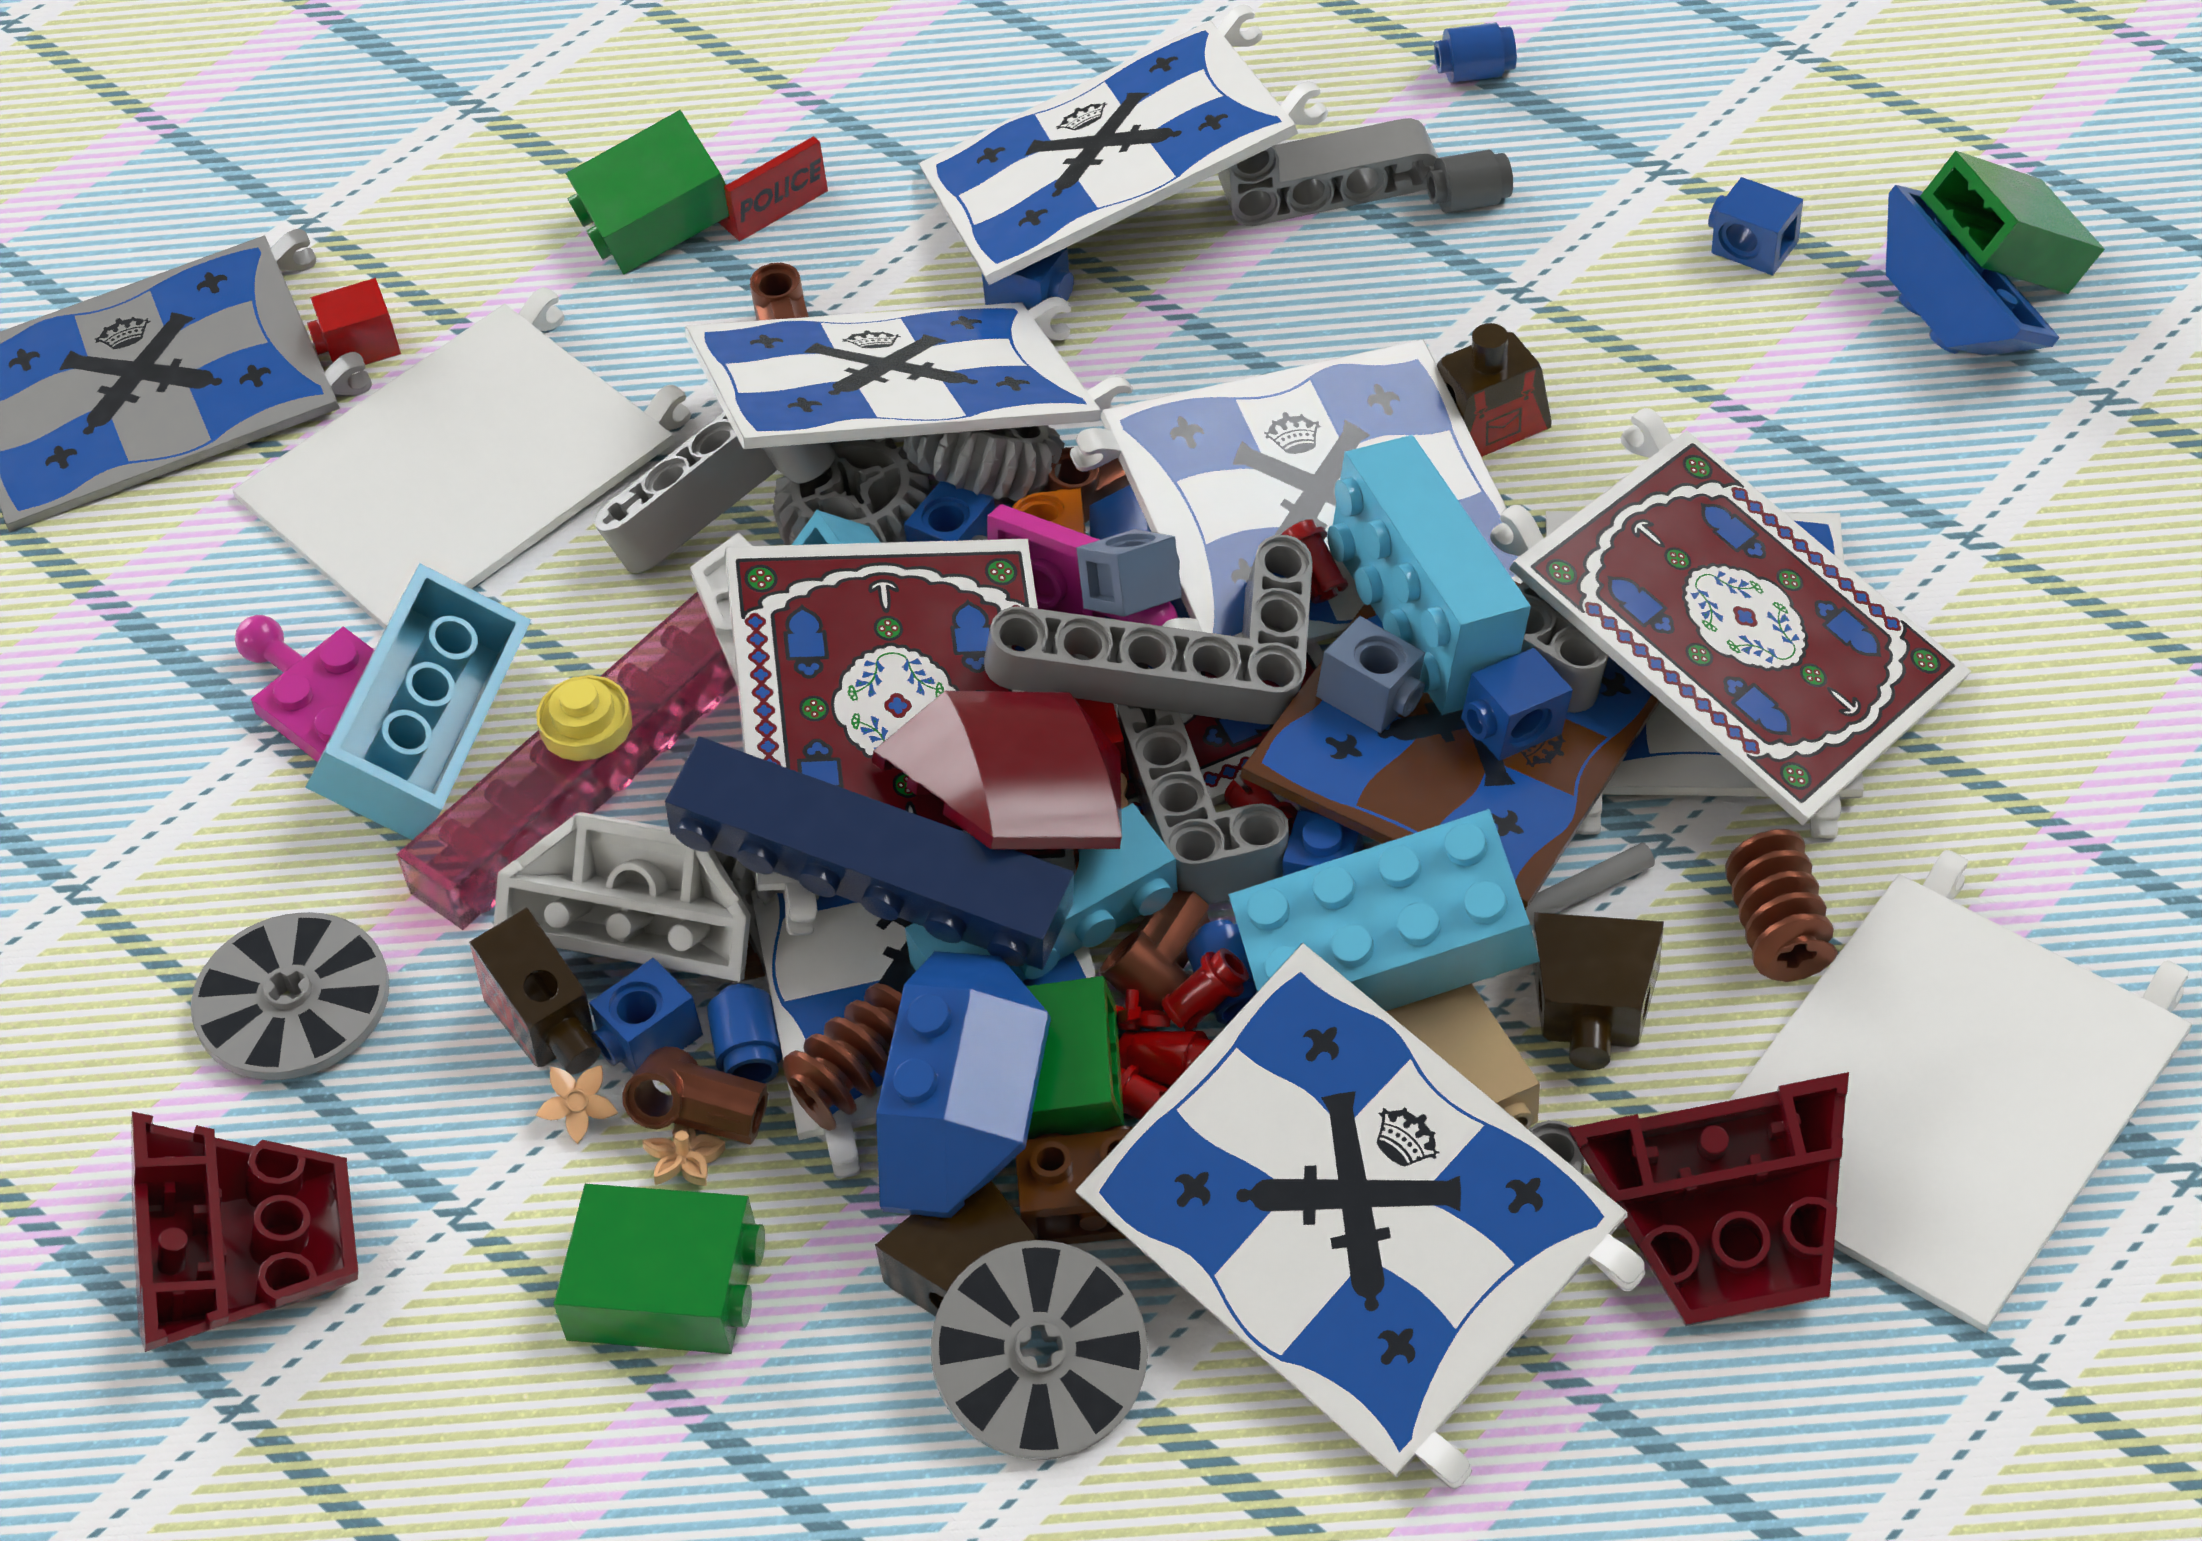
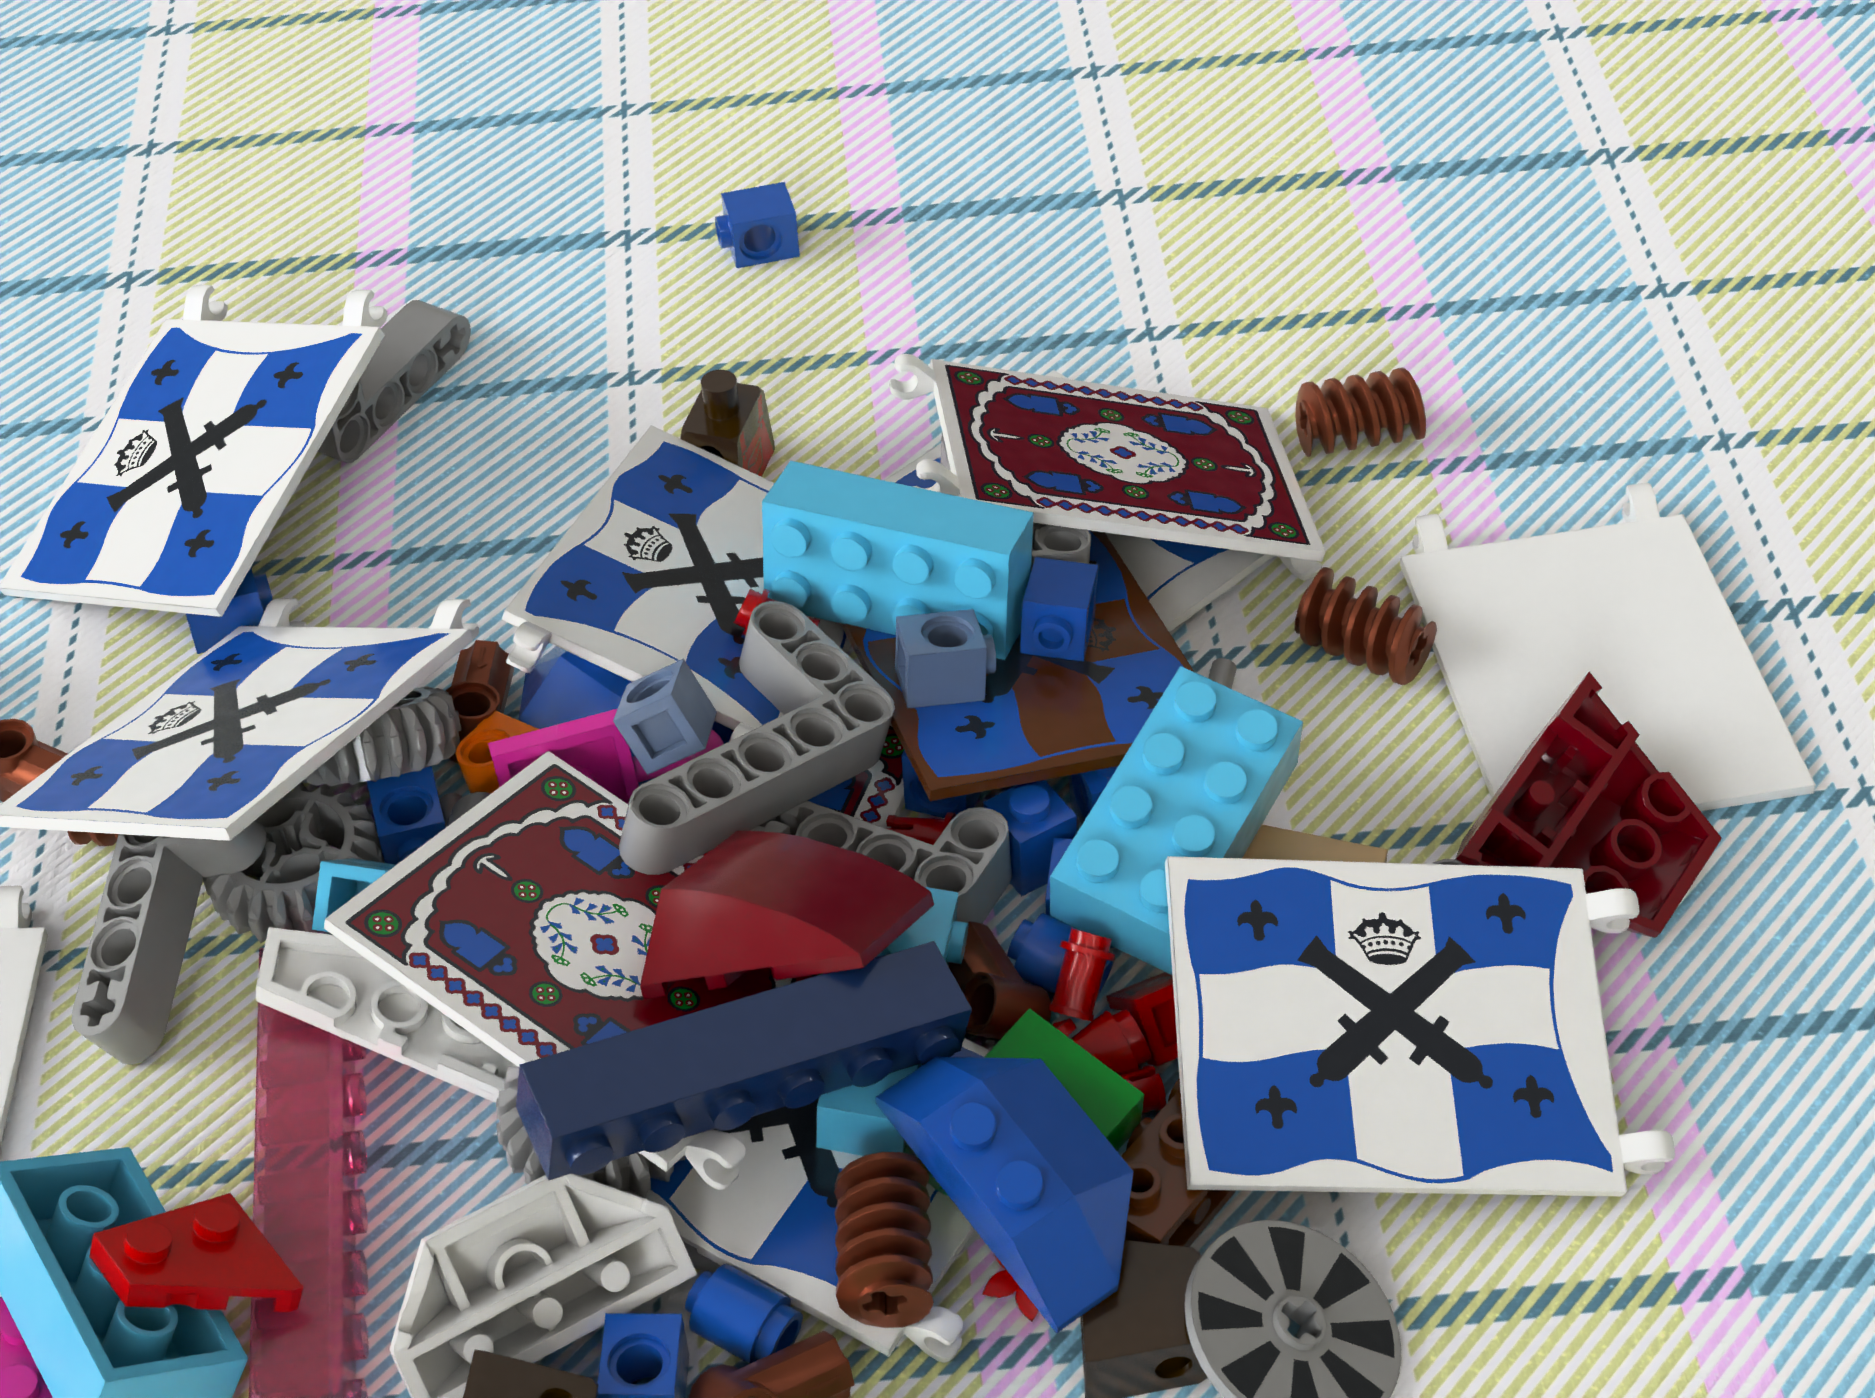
camera: 50 degrees left, 5 degrees down
(468, 719) = (194, 1259): none -> red wing
(584, 718) = (302, 1176): light yellow plate -> none
(1470, 181) = (504, 321): dark grey brick -> none
(1475, 52) = (392, 235): blue brick -> none
(1595, 982) = (1335, 771): dark brown torso -> none
(1950, 291) = (956, 176): blue wedge -> none
(2011, 222) = (947, 112): green brick -> none
(2024, 730) = (1359, 408): none -> copper piece

